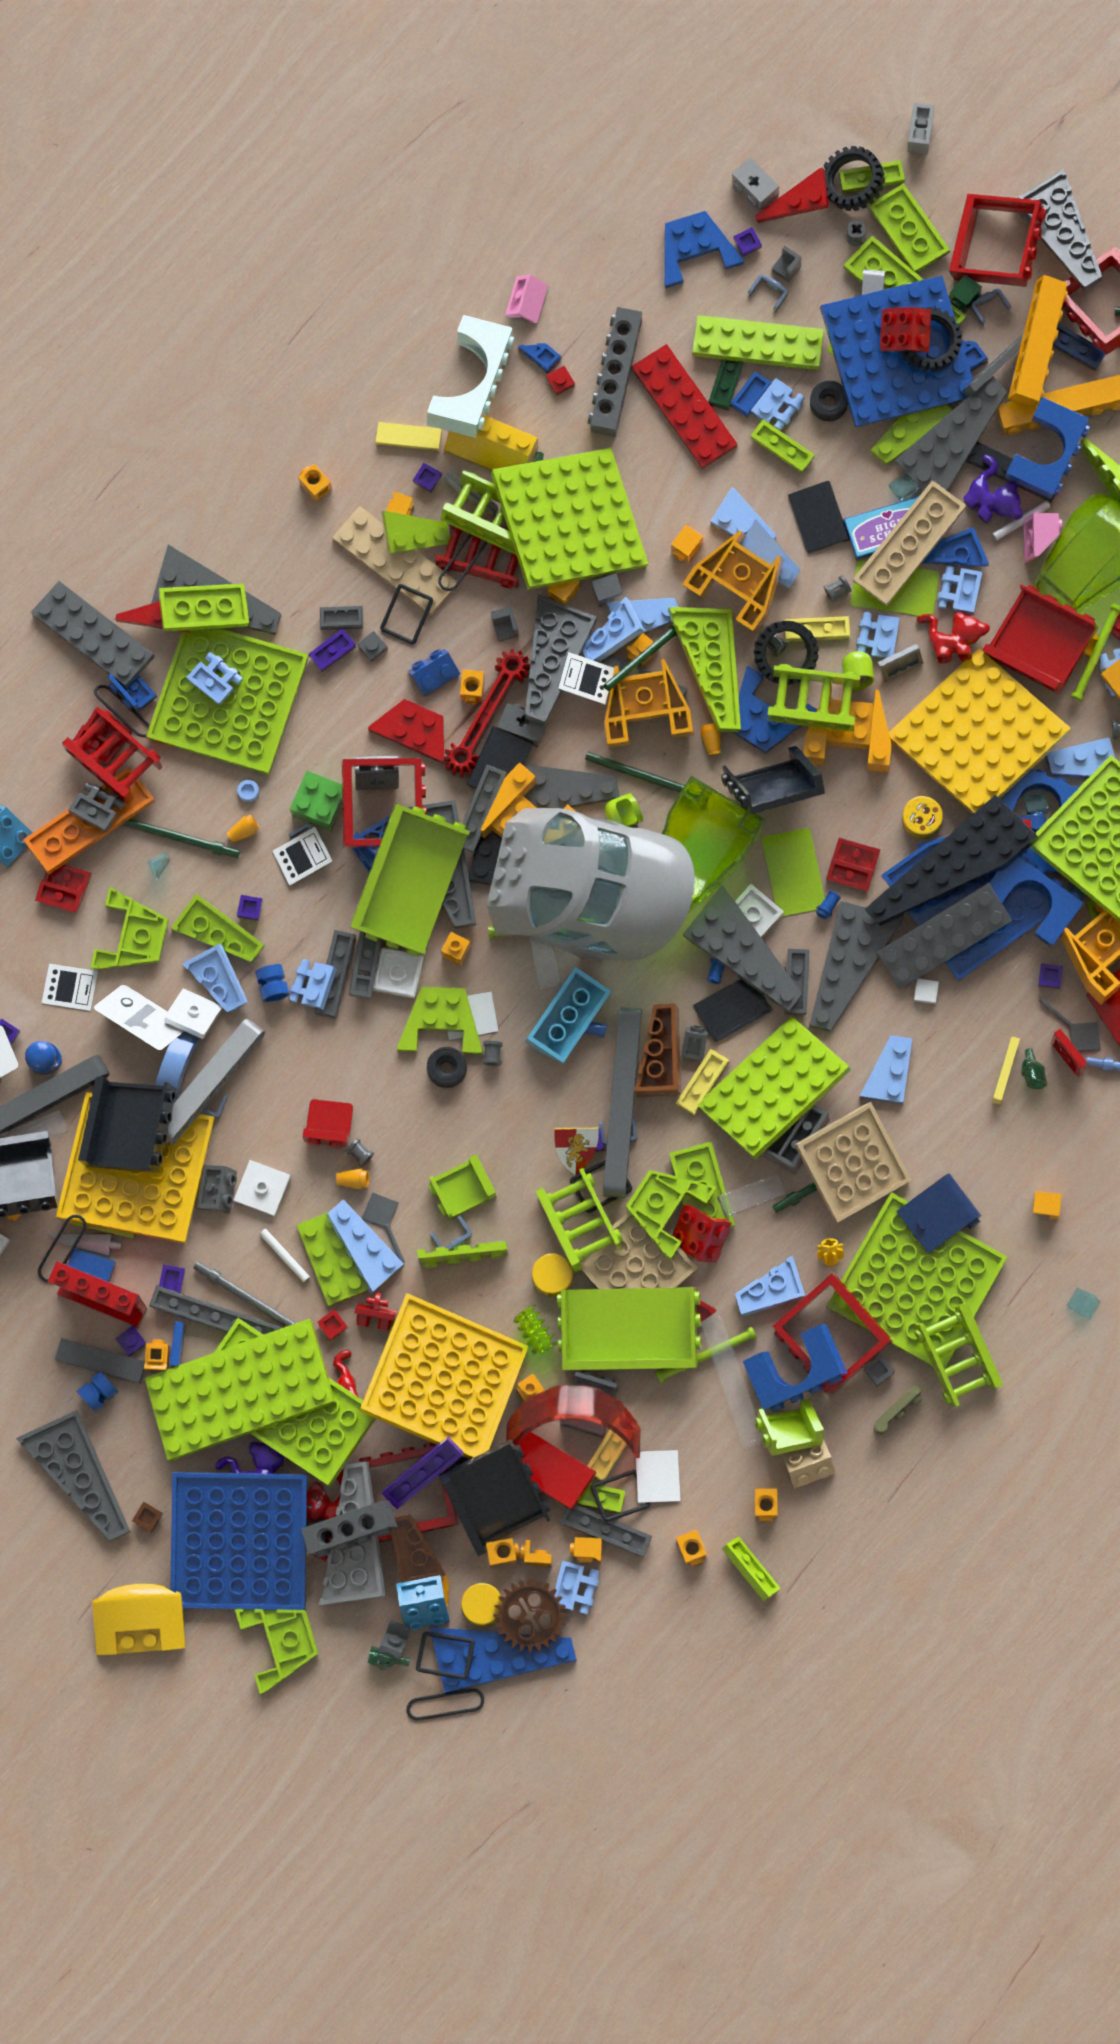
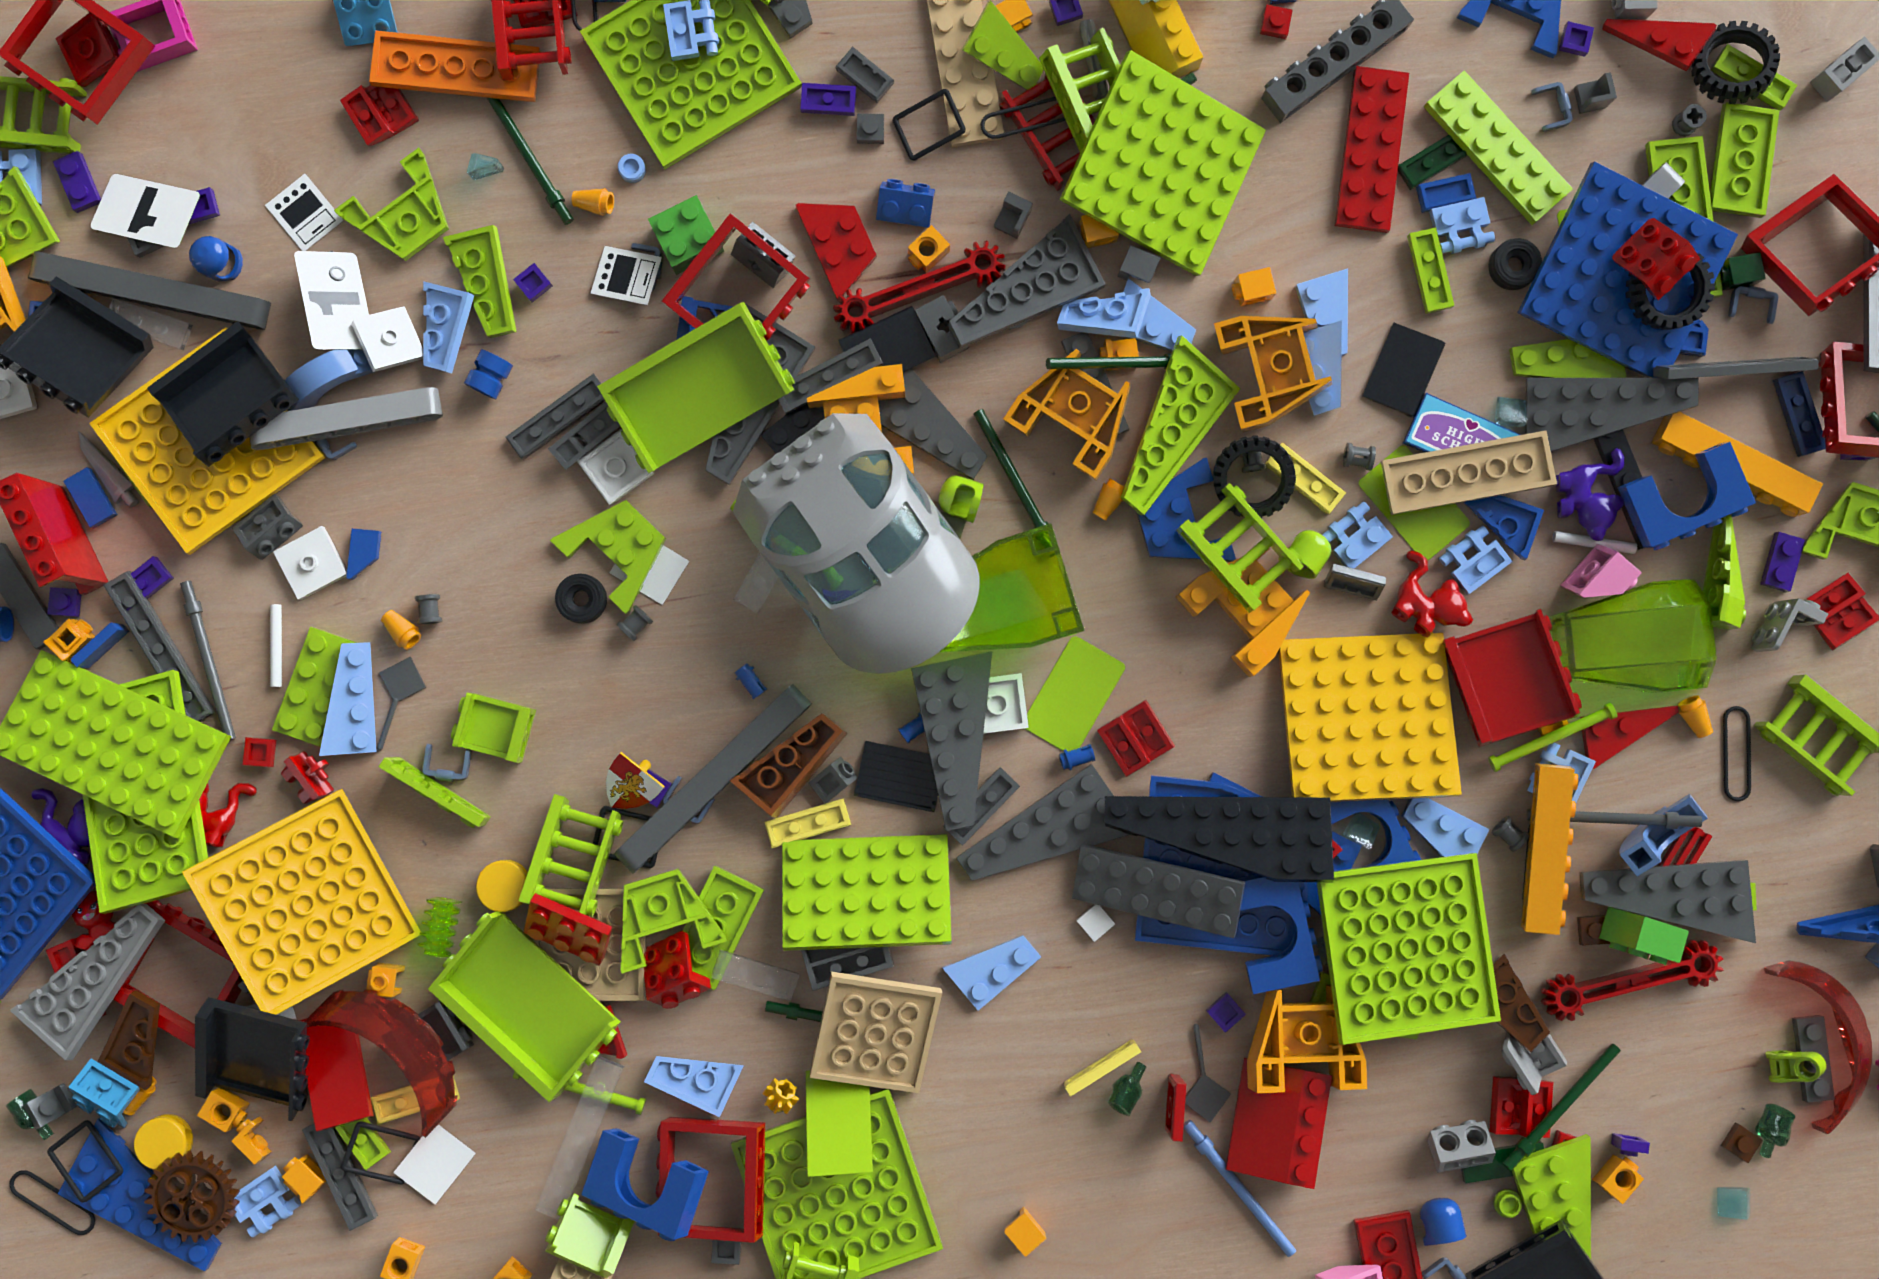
camera: 30 degrees right, 10 degrees up
(56, 1239) = (109, 450): black piece -> none
(94, 813) = (460, 59): dark grey plate -> none
(287, 1153) = (363, 550): none -> blue tile
(316, 1534) = (85, 971): dark grey brick -> none
(318, 986) = (531, 413): light blue plate -> none
(328, 1123) = (422, 556): red bracket -> none
(422, 1472) = (198, 980): dark purple plate -> none
(456, 948) = (688, 492): light orange brick -> none
(568, 1016) = (734, 651): medium azure slope -> none
(585, 678) = (1040, 335): white sticker -> none
(615, 1258) = (567, 929): none -> red plate
(776, 783) = (1126, 601): black panel -> none
(878, 1235) = (837, 1128): none -> lime sticker
(922, 817) = (1241, 751): yellow head -> none
(939, 1213) = (920, 1150): dark blue door -> none
(1038, 340) = (1775, 380): light orange brick -> none

